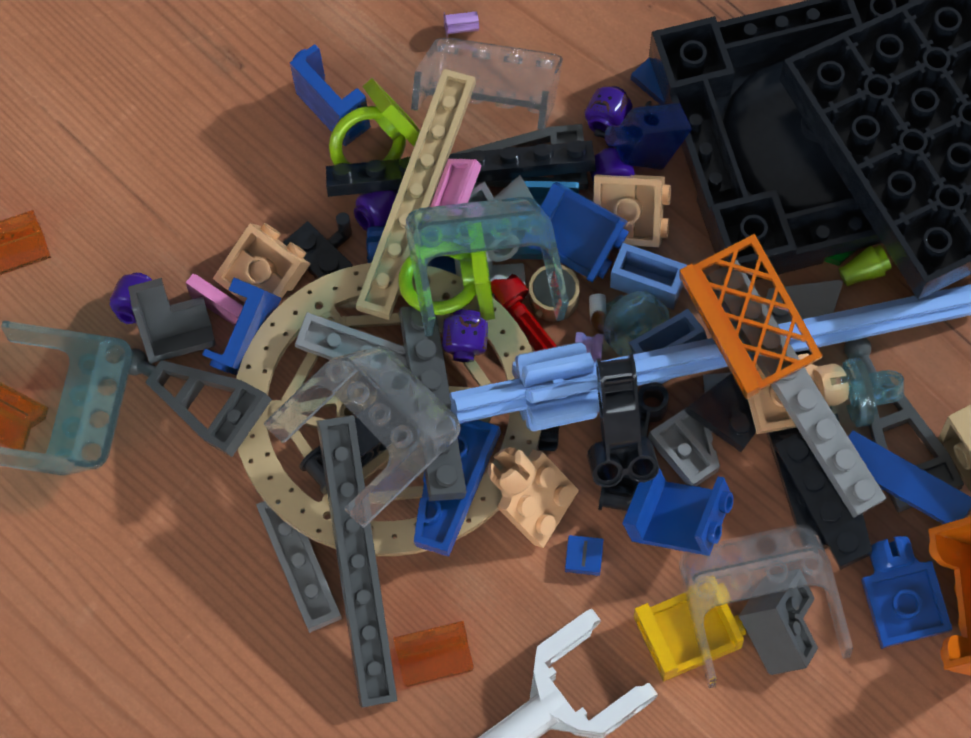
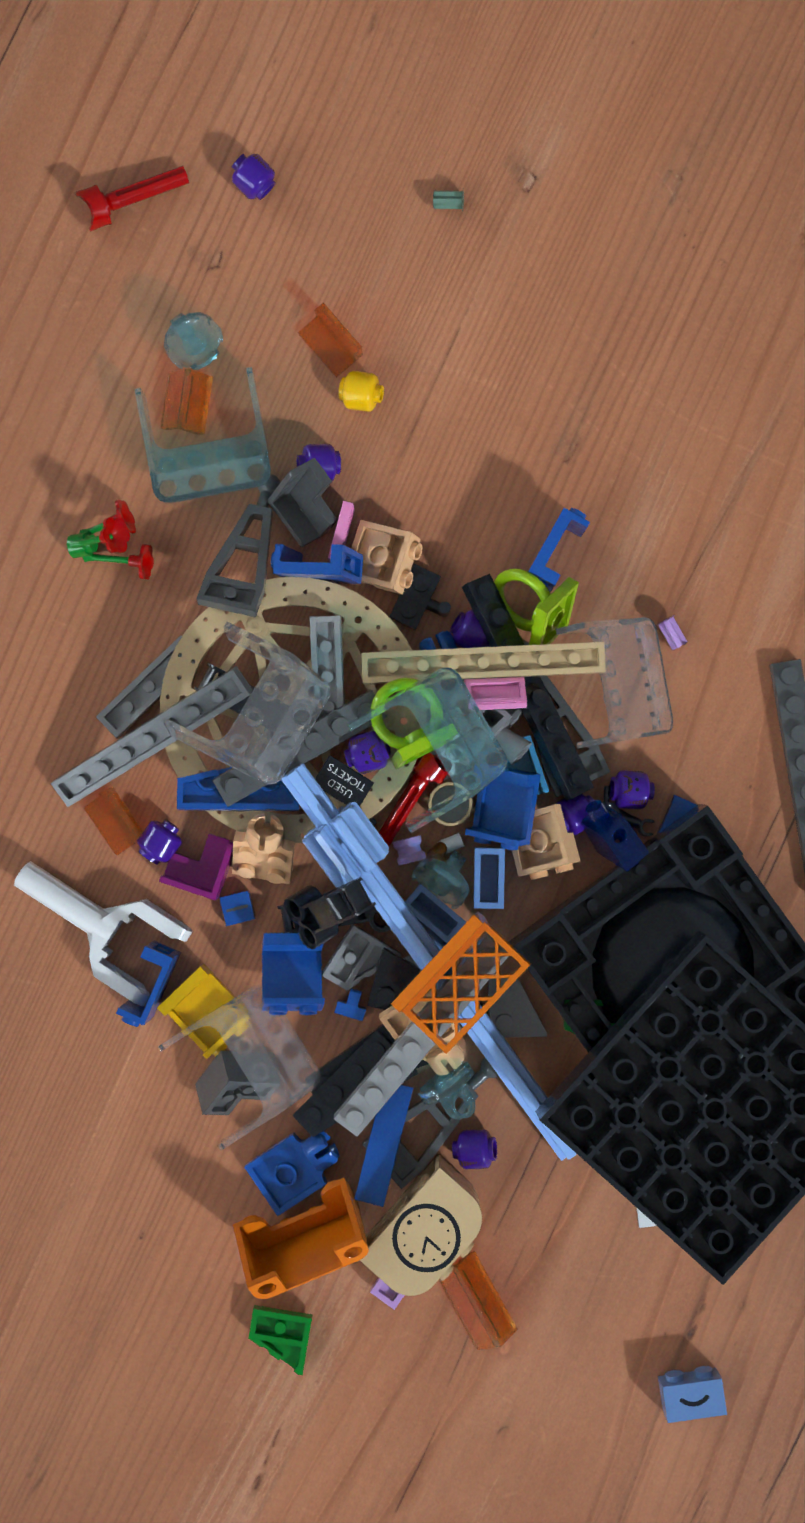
camera: 65 degrees right, 20 degrees up
(78, 231) = (360, 391): none -> yellow head
(108, 573) = (115, 535): none -> red plant
(477, 609) = (159, 841): none -> dark purple head
(491, 370) = (343, 782): none -> black sticker
(534, 573) = (202, 876): none -> magenta panel
(617, 640) = (167, 959): none -> blue panel
(739, 467) = (351, 1007): none -> blue tile
(866, 266) = (566, 1050): lime cone -> none
(943, 392) = (475, 1149): none -> dark purple head

